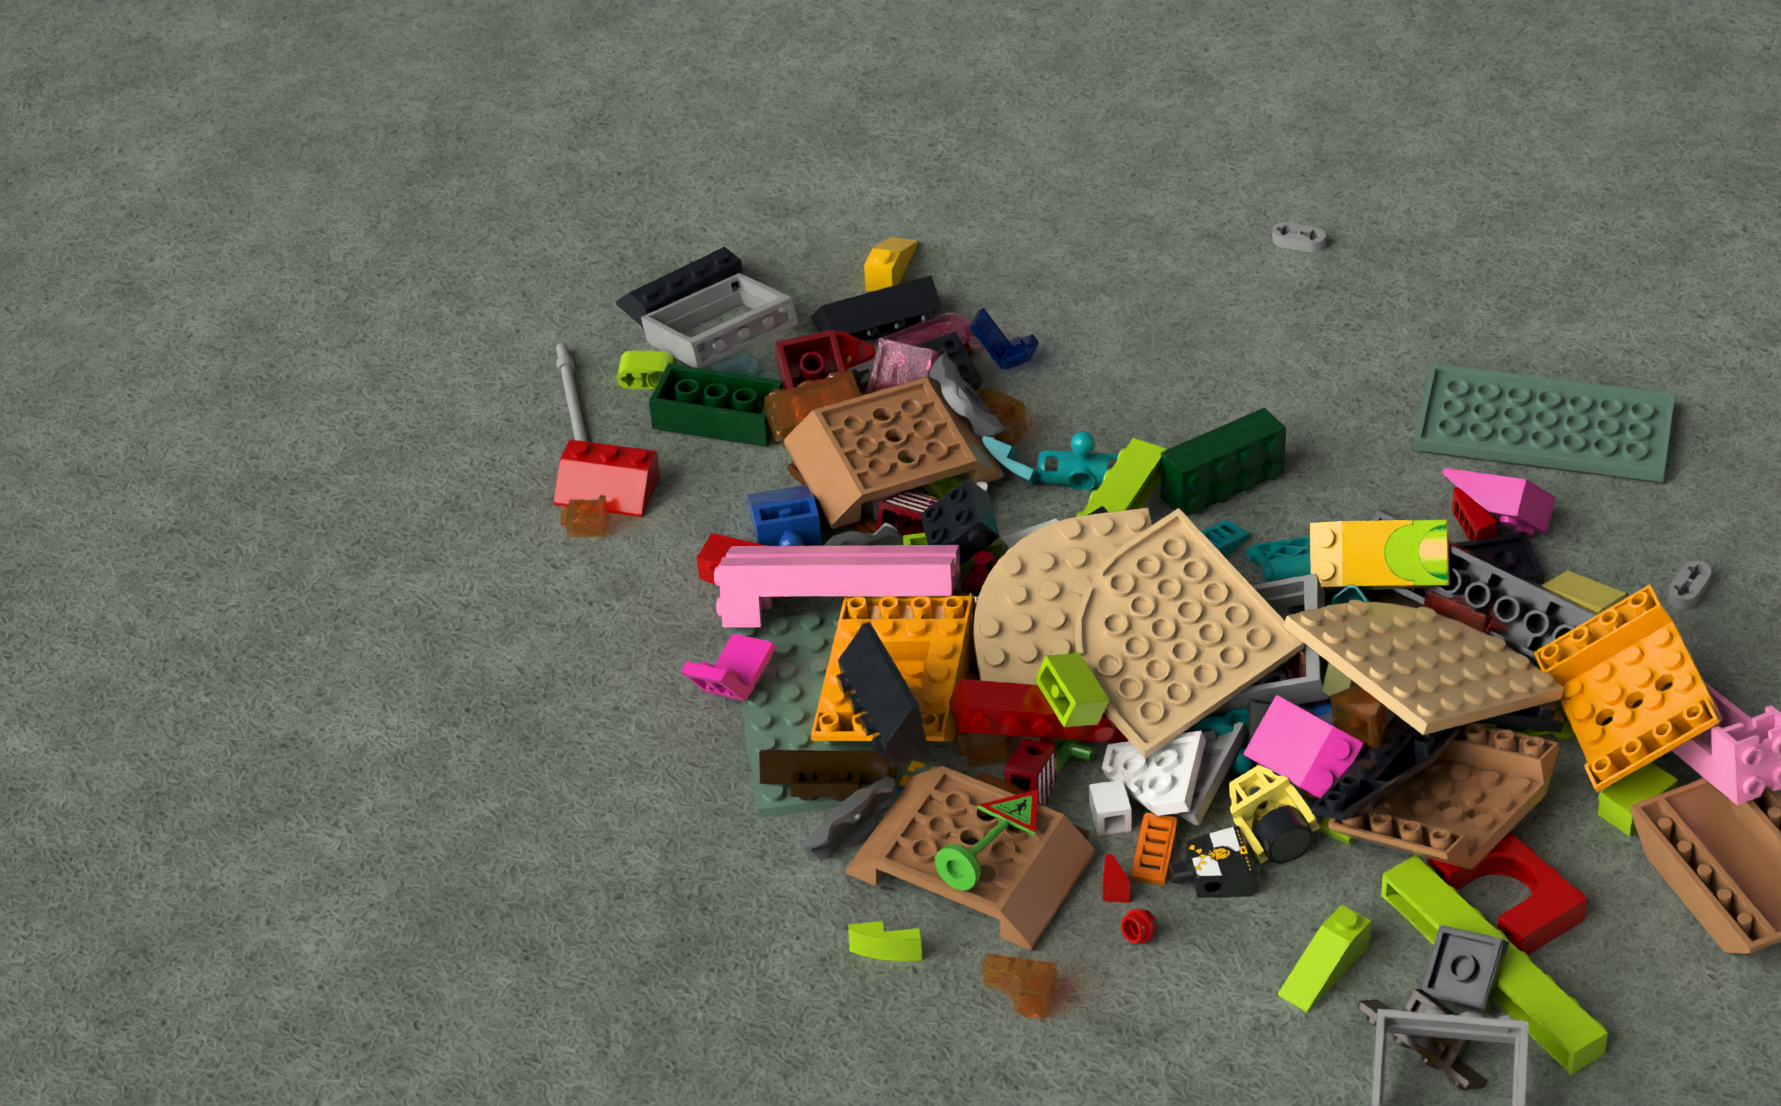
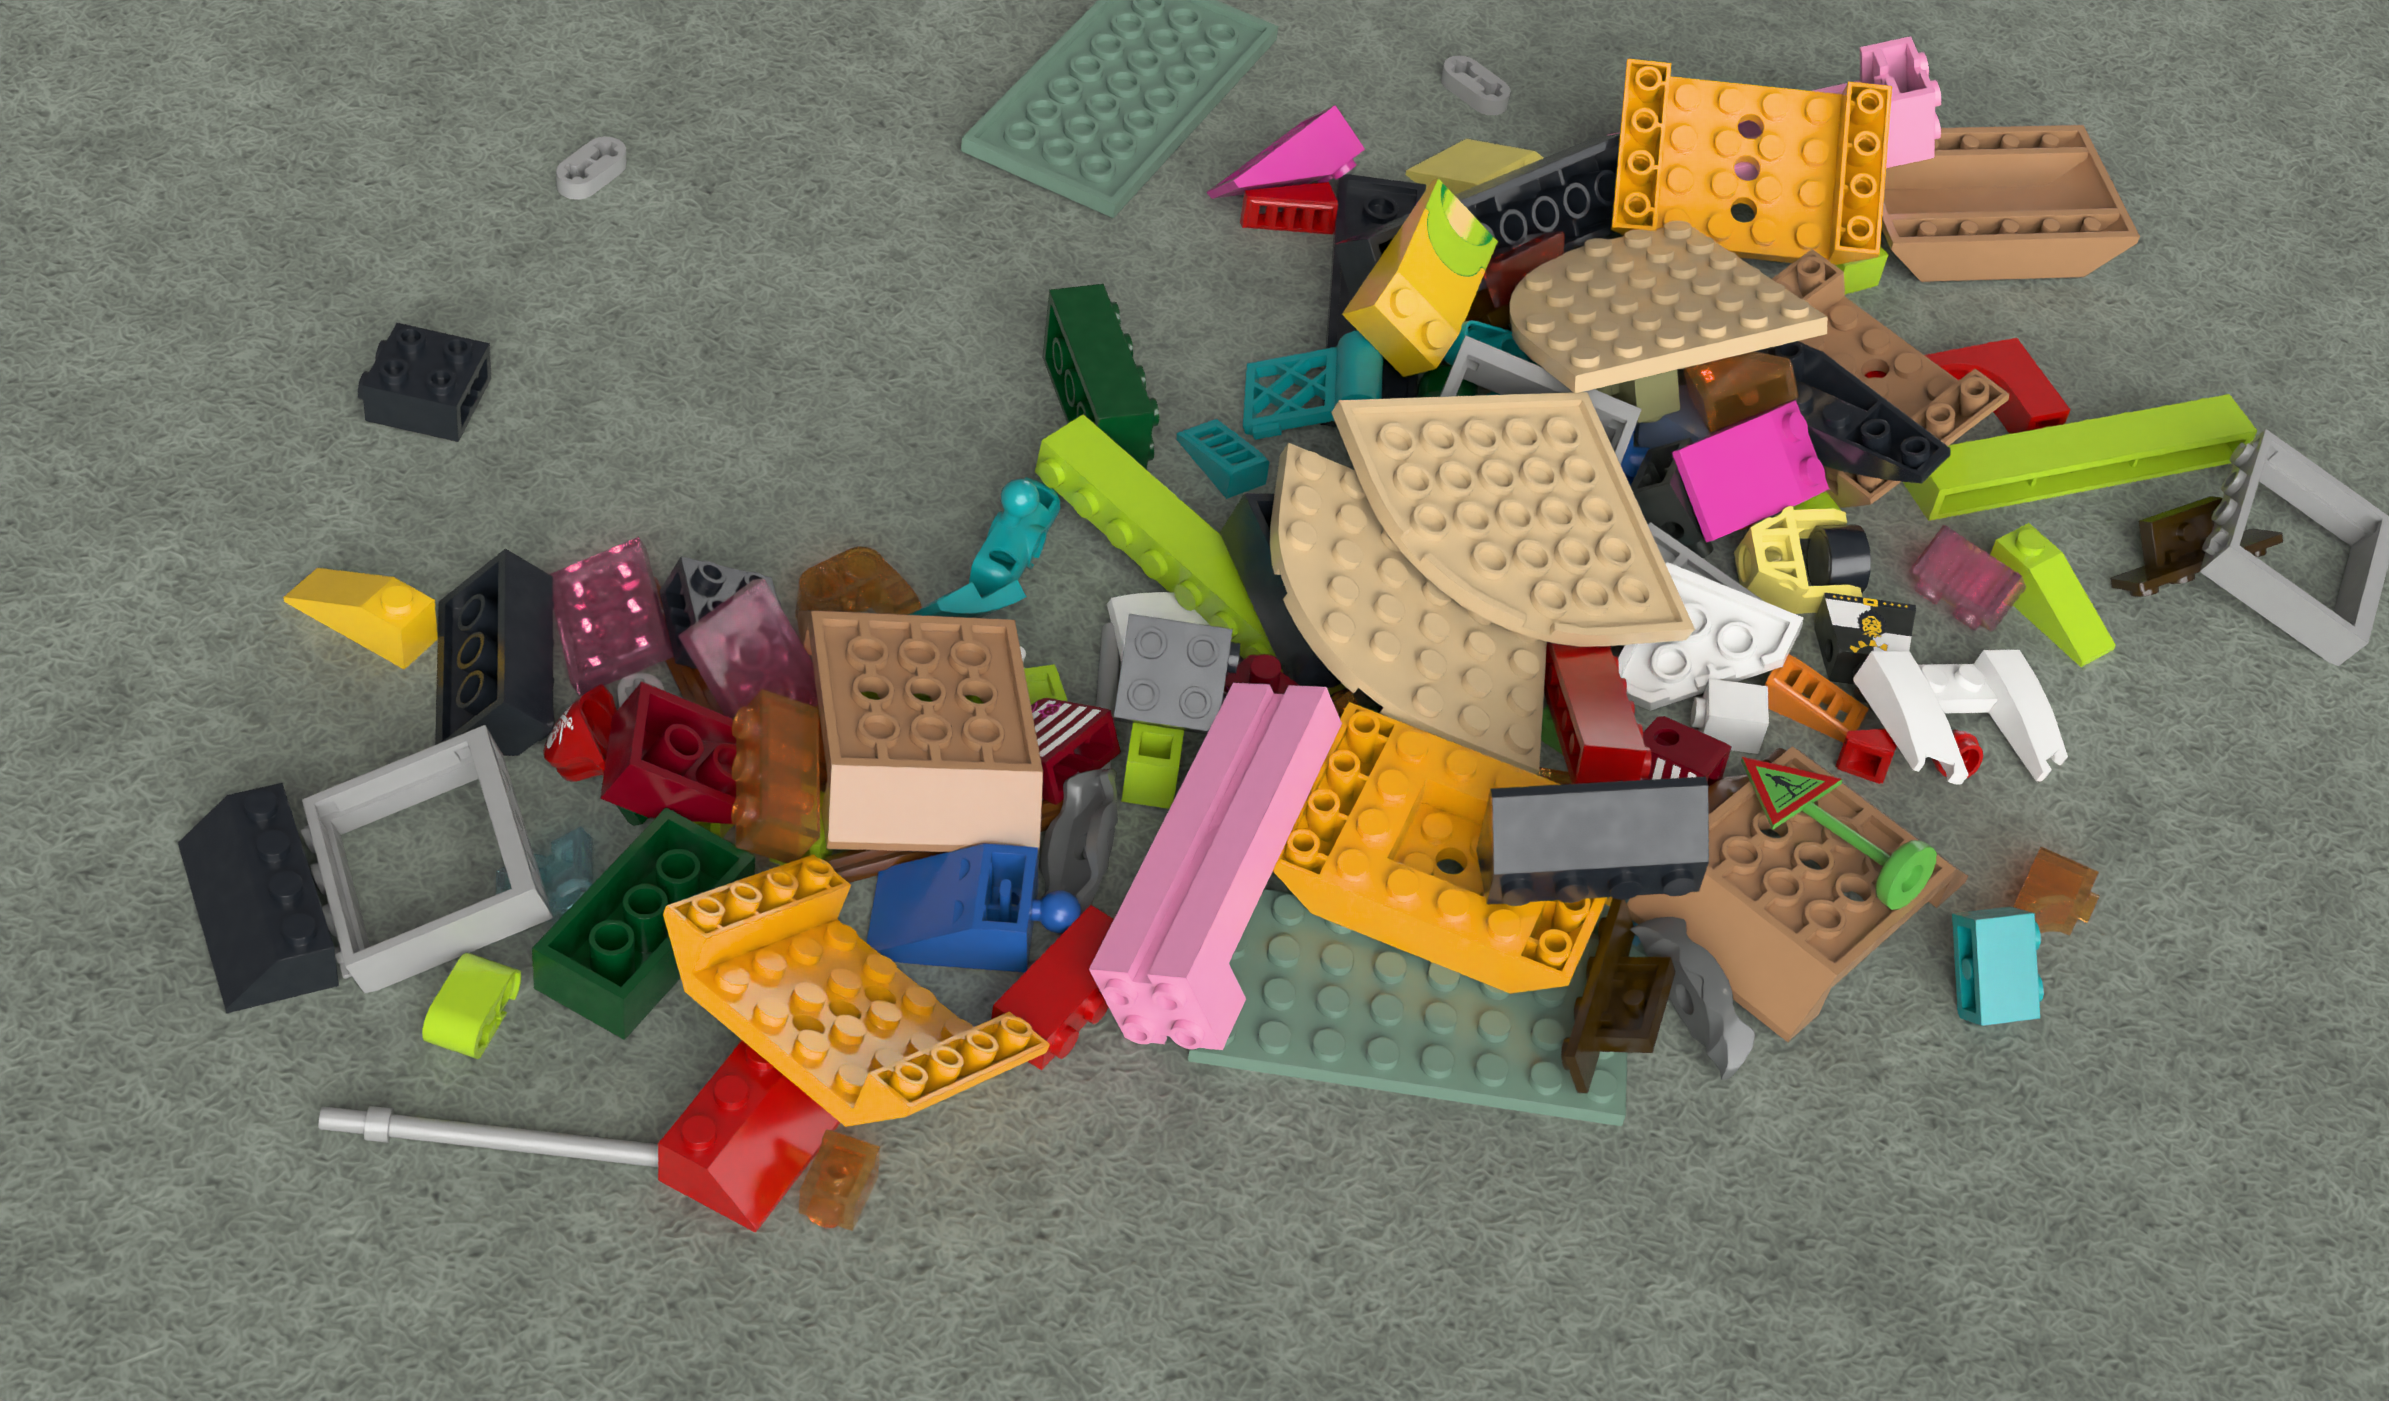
camera: 85 degrees left, 5 degrees up
(705, 448) = (827, 1003): none -> light orange slope
(735, 669) = (1328, 1052): dark pink bracket -> none
(873, 942) = (1938, 1029): lime slope -> none
(936, 949) = (1997, 965): none -> brick
(964, 398) = (853, 594): dark grey piece -> none
(1002, 351) = (693, 531): clear blue bracket -> none
(1066, 227) = (425, 381): none -> black brick
(1071, 689) = (1597, 648): lime brick -> none
(1160, 868) = (1915, 698): none -> white wedge
(1308, 905) = (1966, 579): none -> clear pink brick
(1464, 967) = (2108, 474): tile -> none

